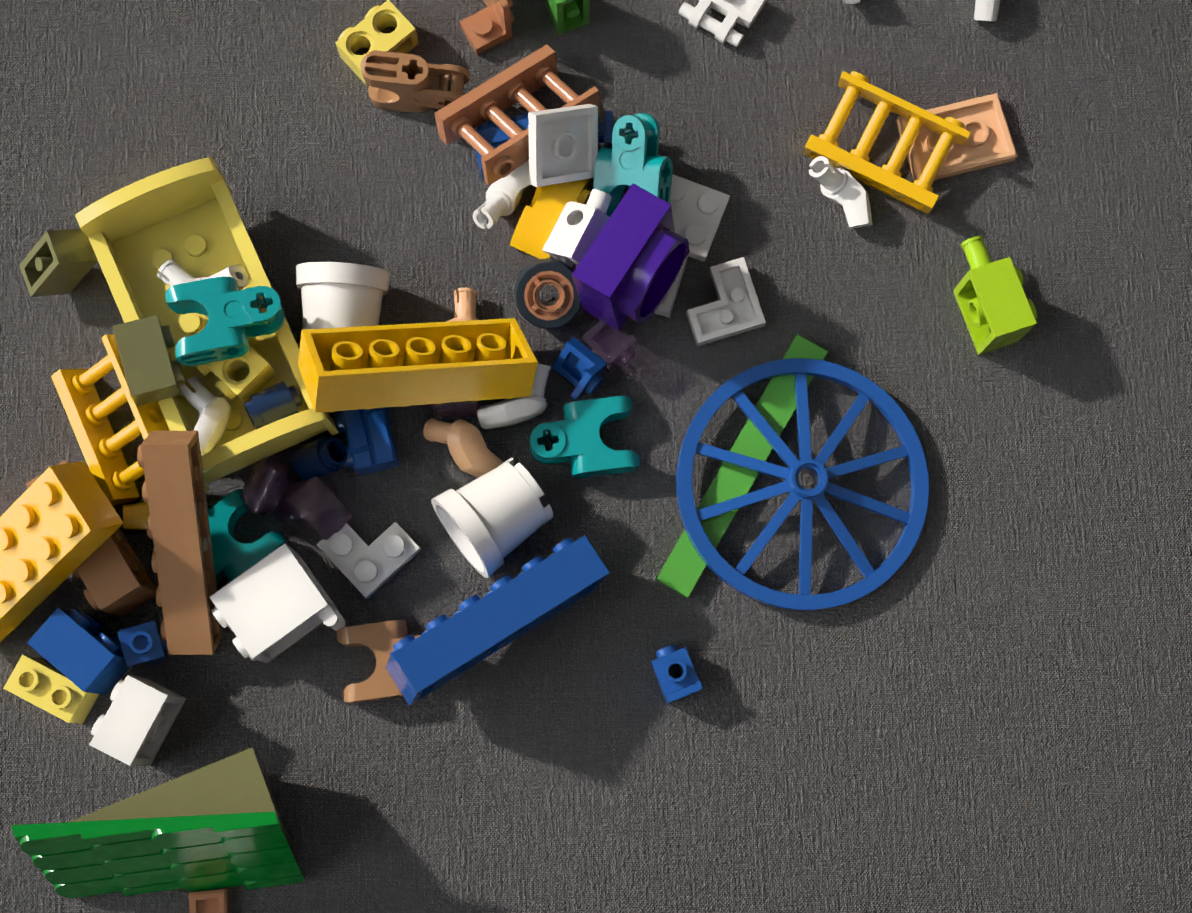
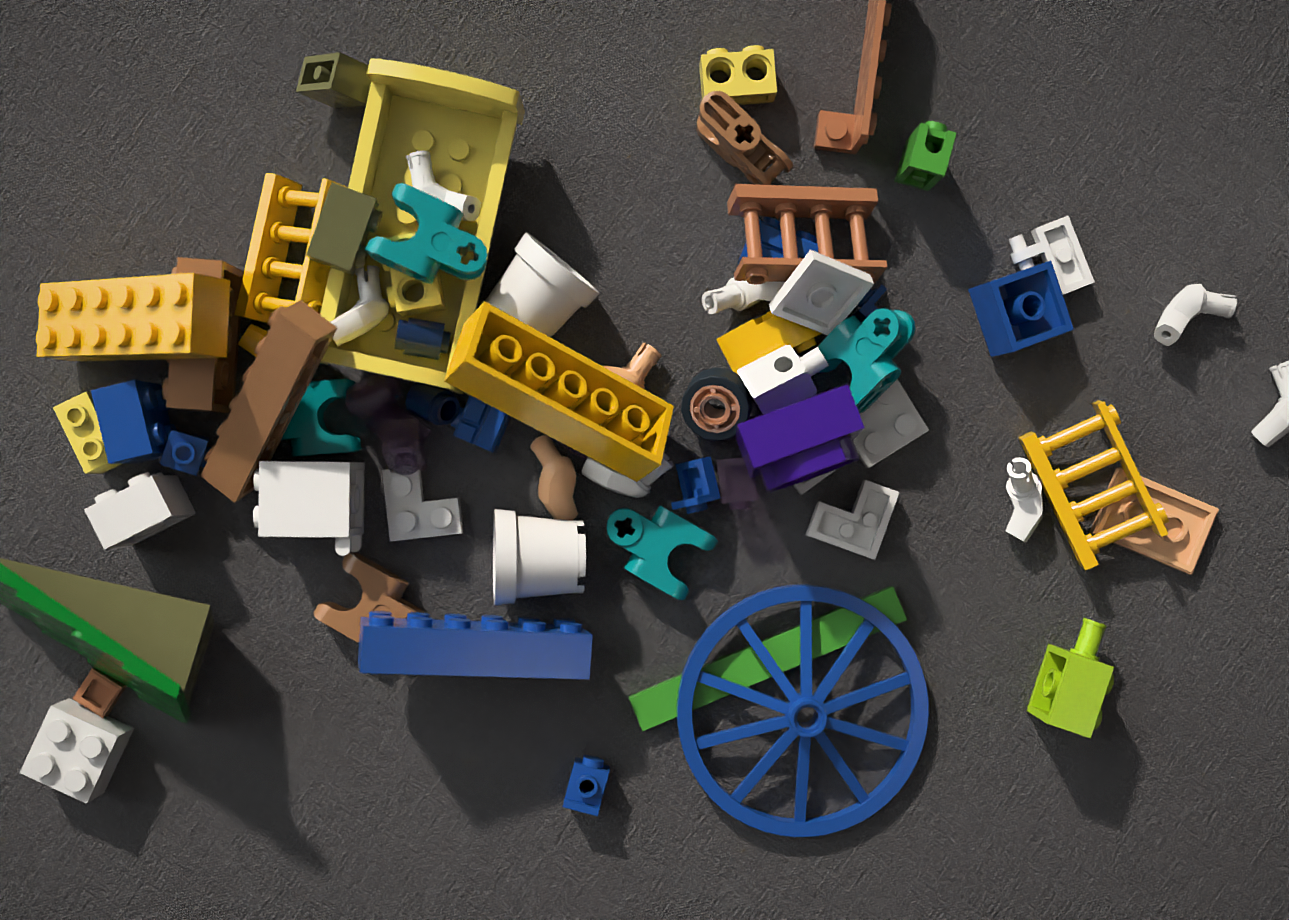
camera: 40 degrees right, 10 degrees up
(726, 53) = (1021, 309): none -> blue slope

